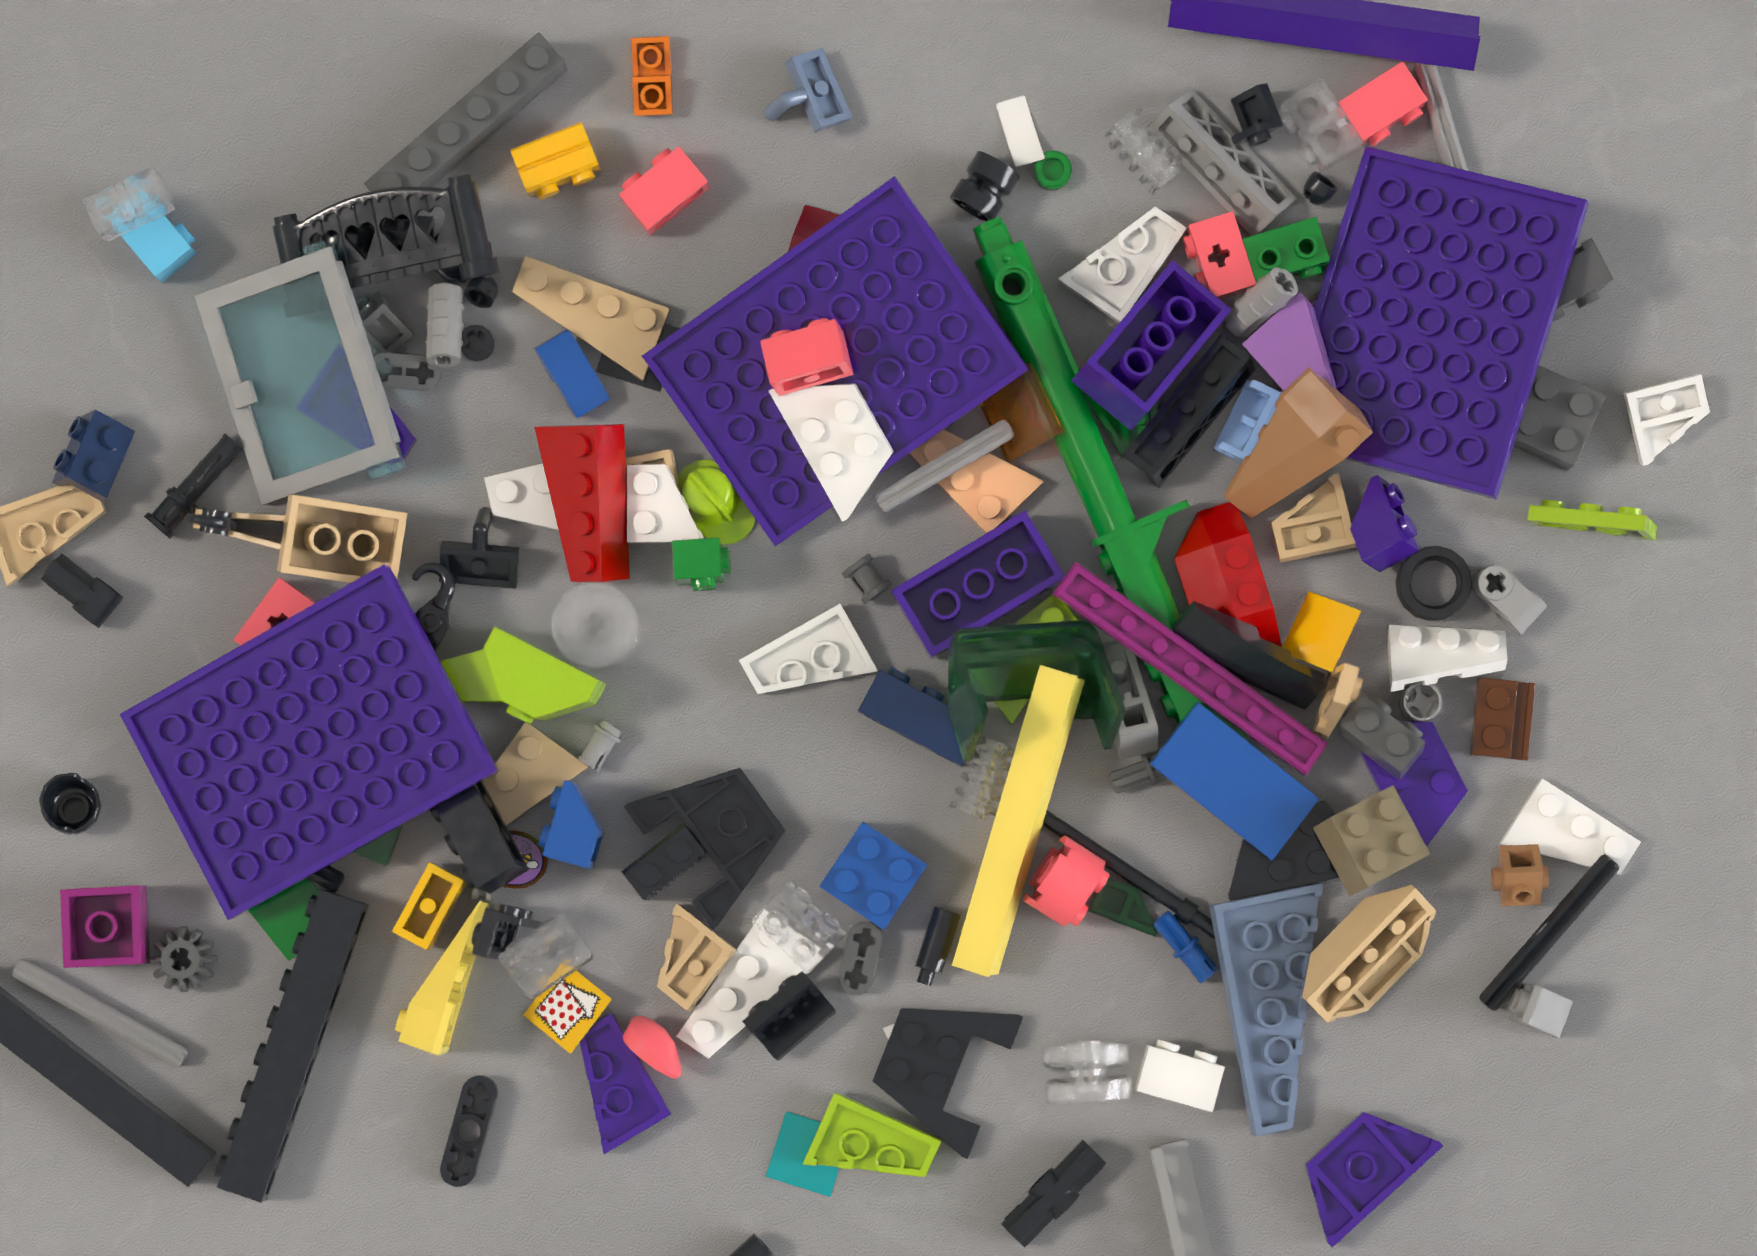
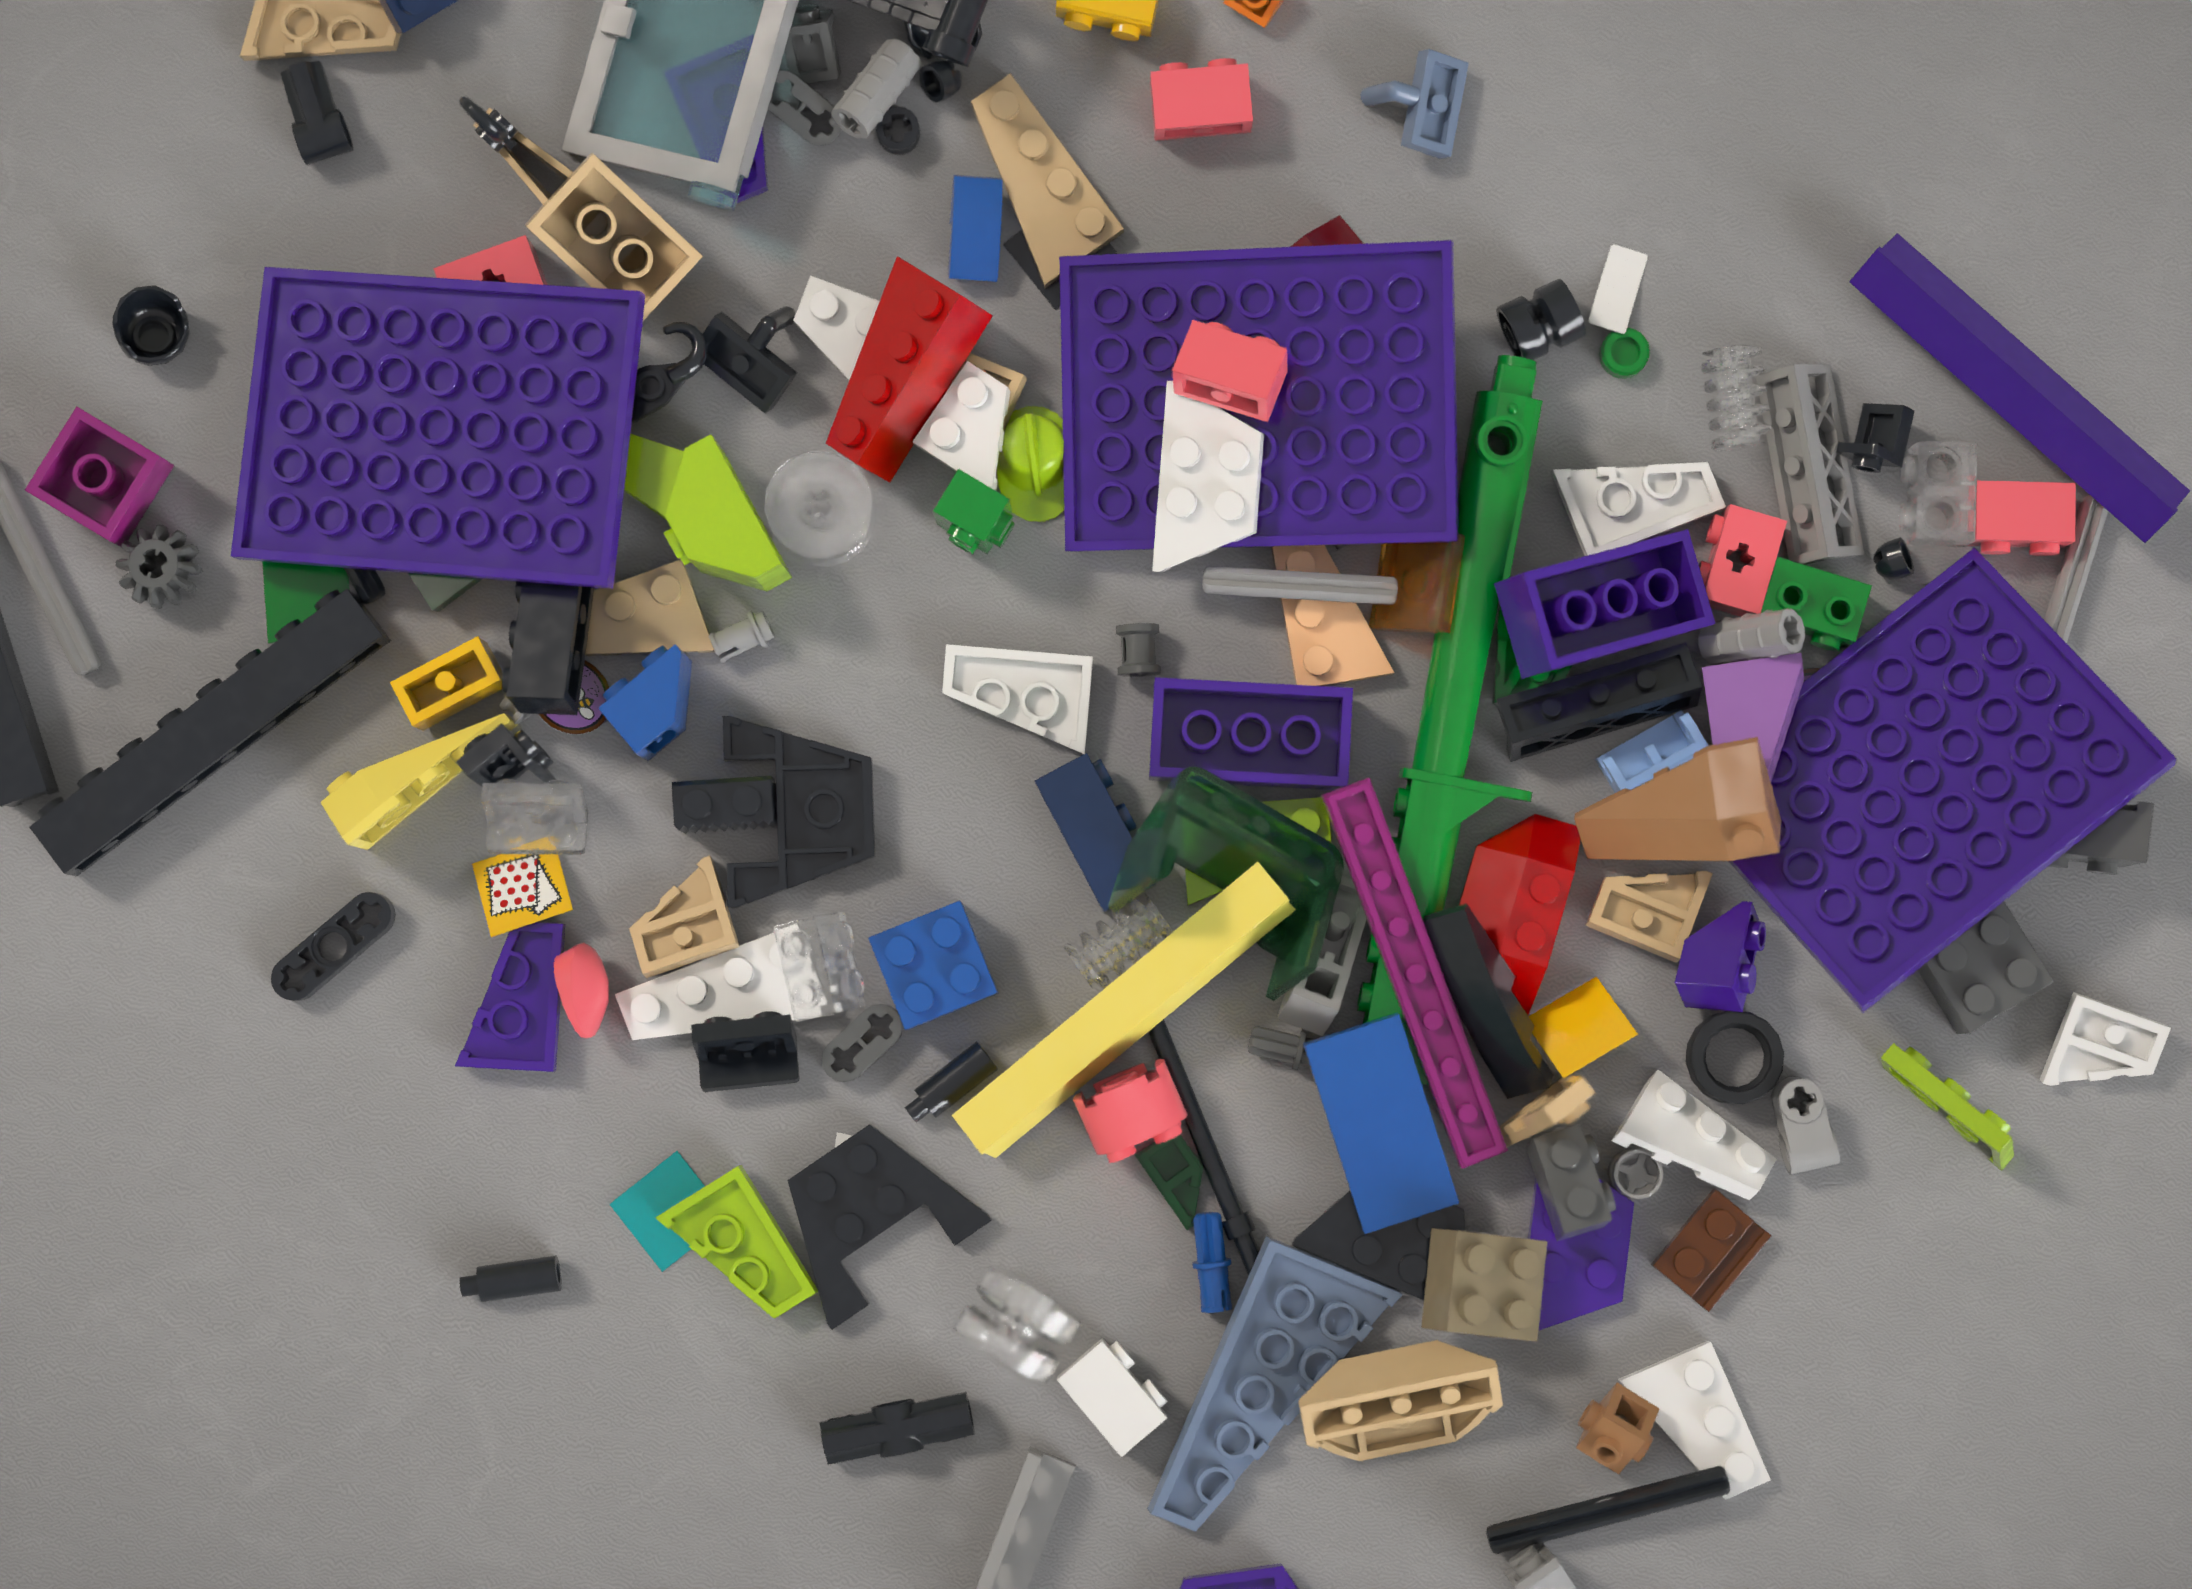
camera: 35 degrees right, 0 degrees up
(227, 449) = (477, 83): black pin -> none

